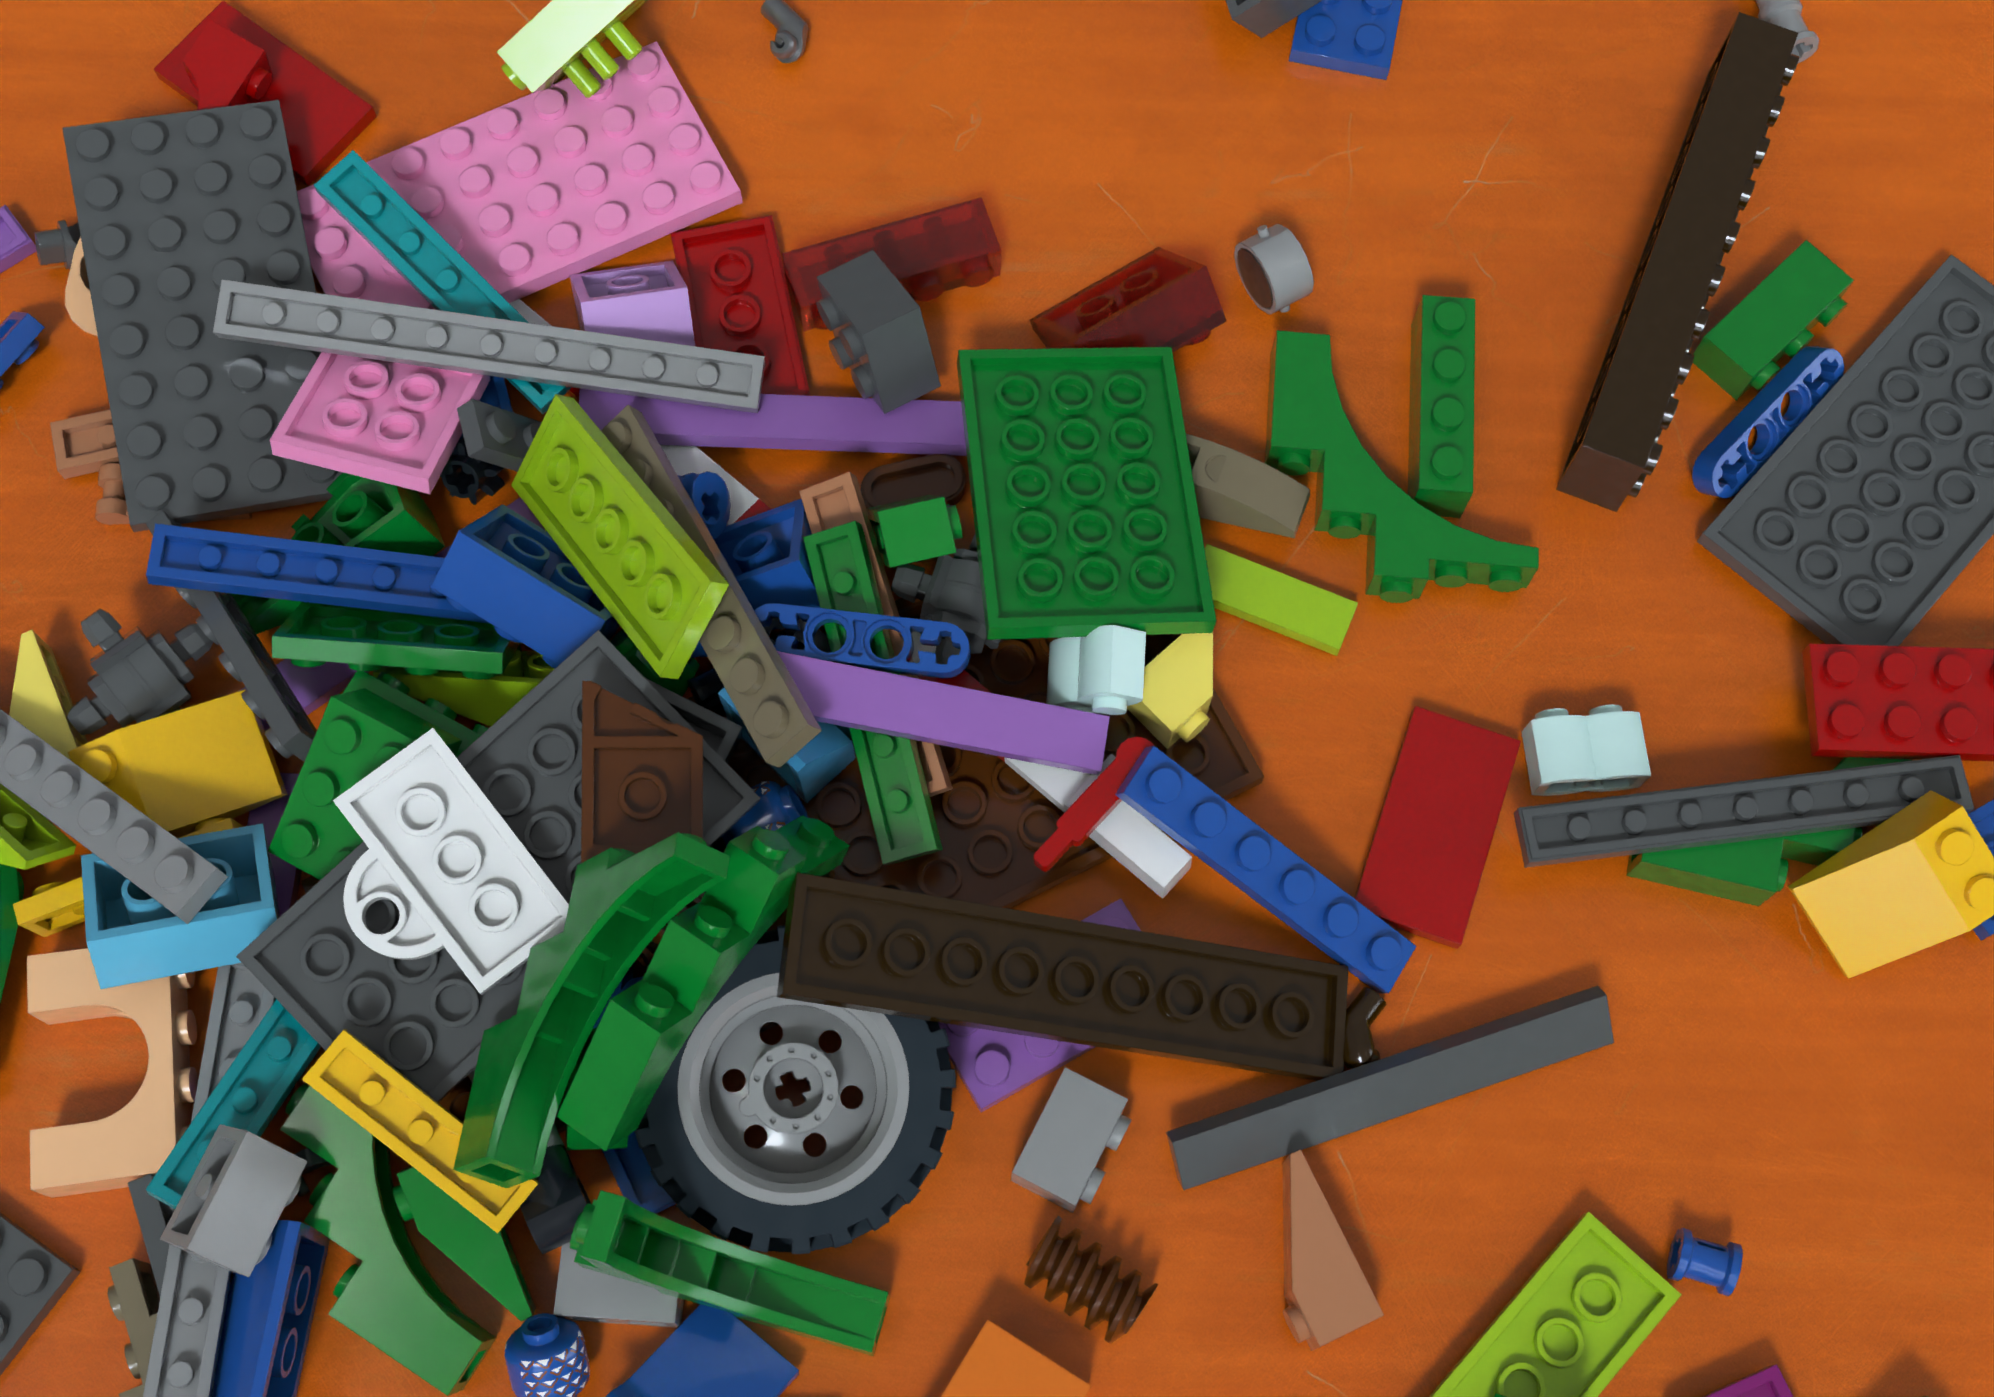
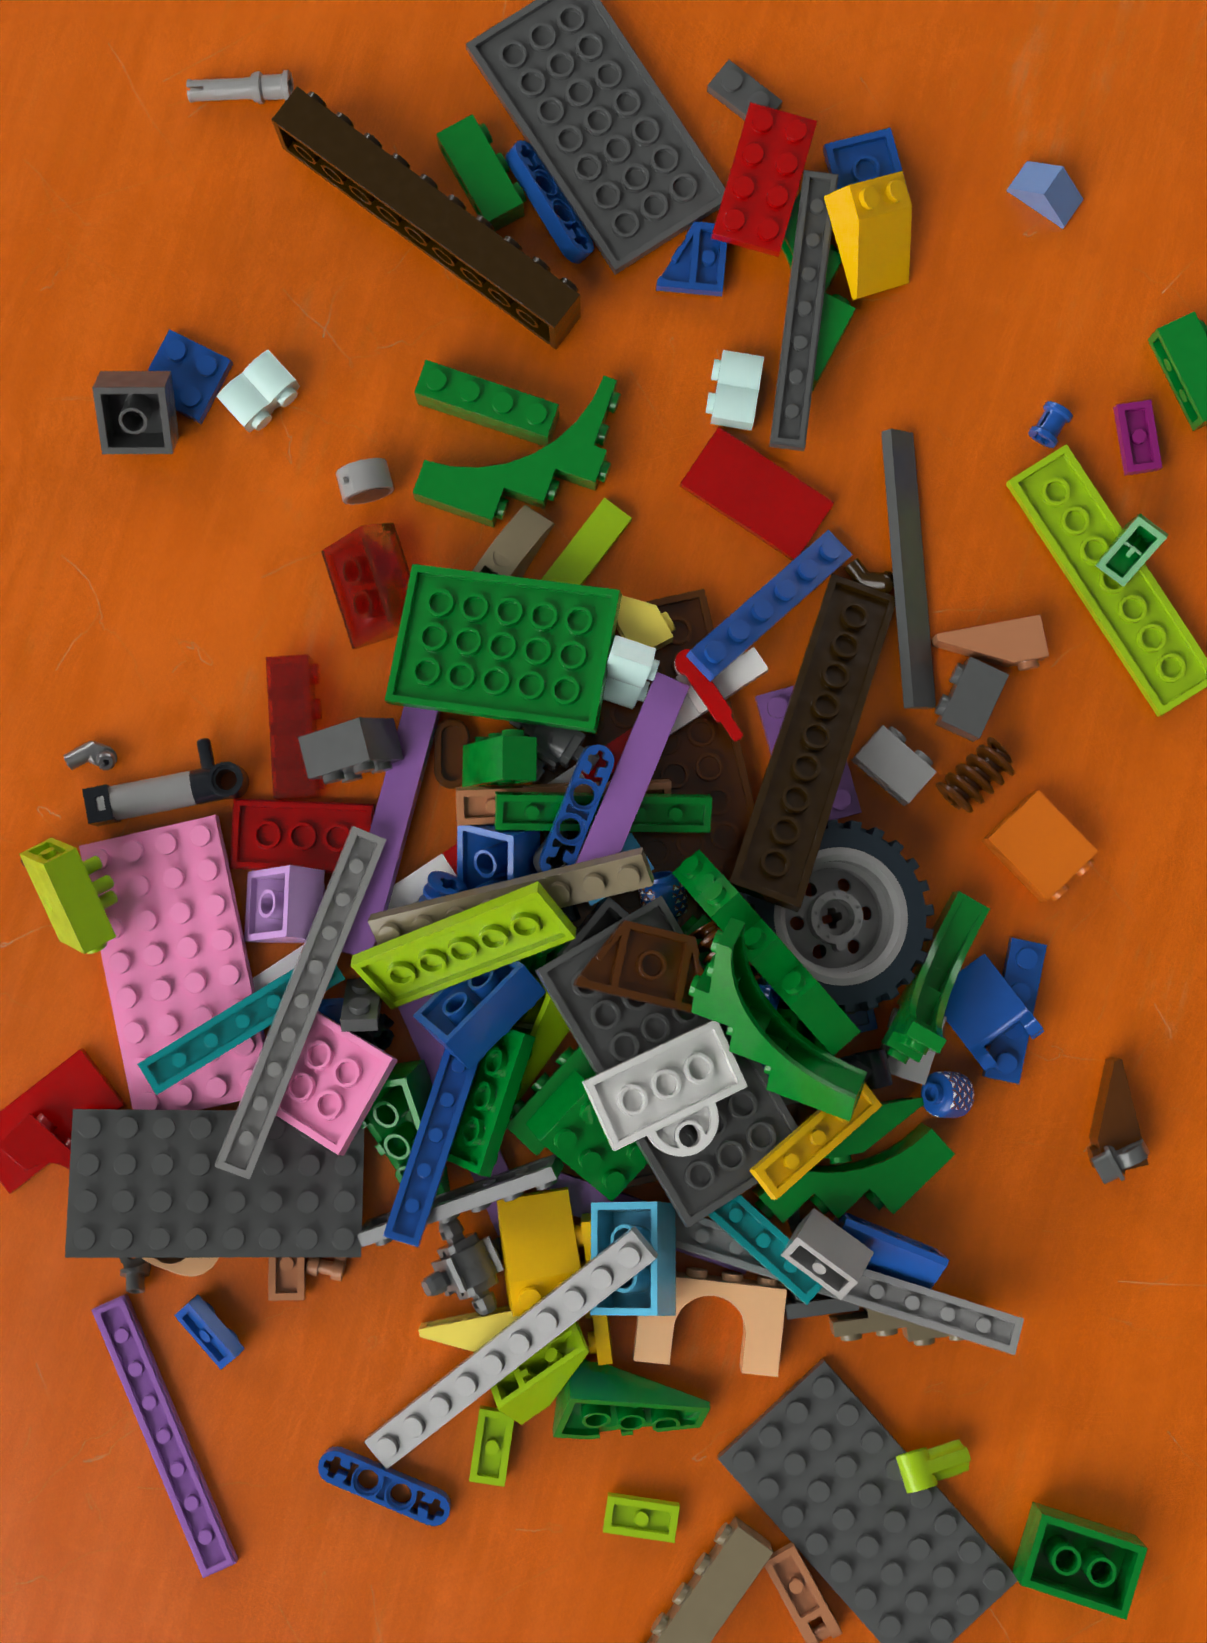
camera: 75 degrees left, 15 degrees up
(725, 69) = (112, 803): none -> piece
(1213, 1239) = (970, 699): none -> dark grey brick
(1356, 111) = (259, 391): none -> light aqua brick
(1754, 649) = (696, 264): none -> blue wing

